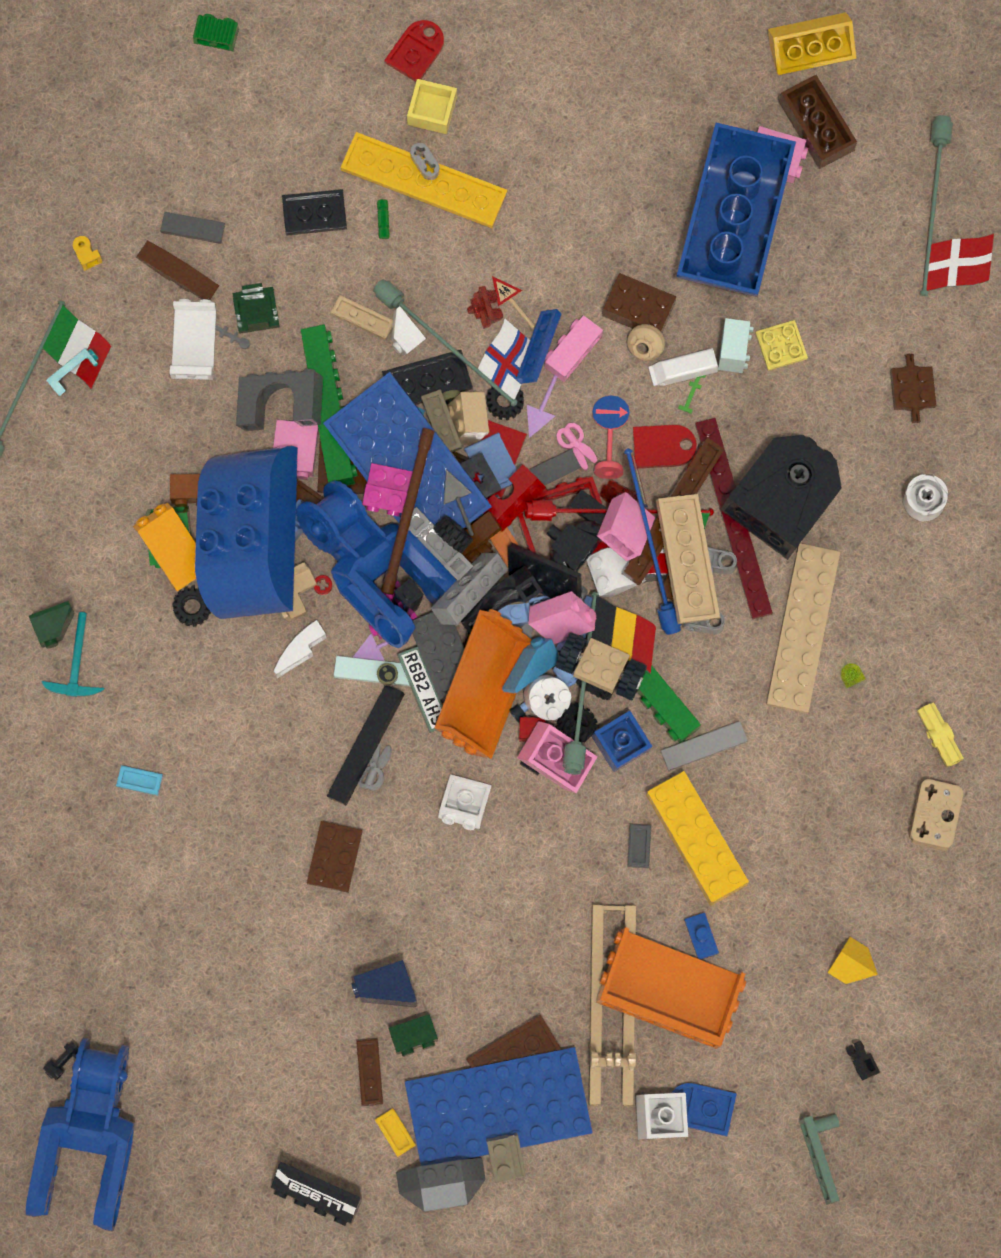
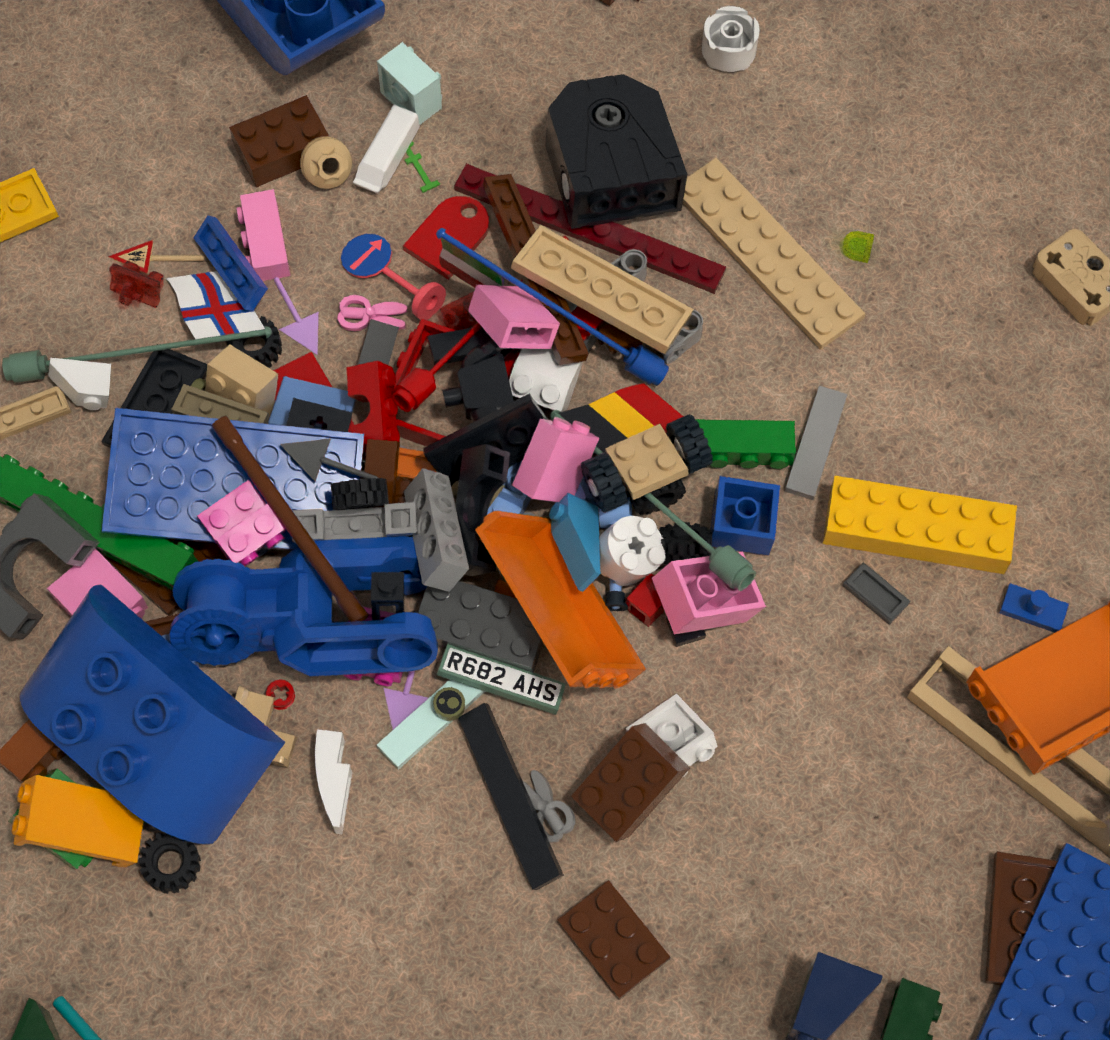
camera: 50 degrees left, 10 degrees down
(418, 799) = (630, 782): none -> reddish brown brick
(781, 345) = (449, 51): light yellow tile -> none
(940, 735) = (995, 211): light yellow piece -> none

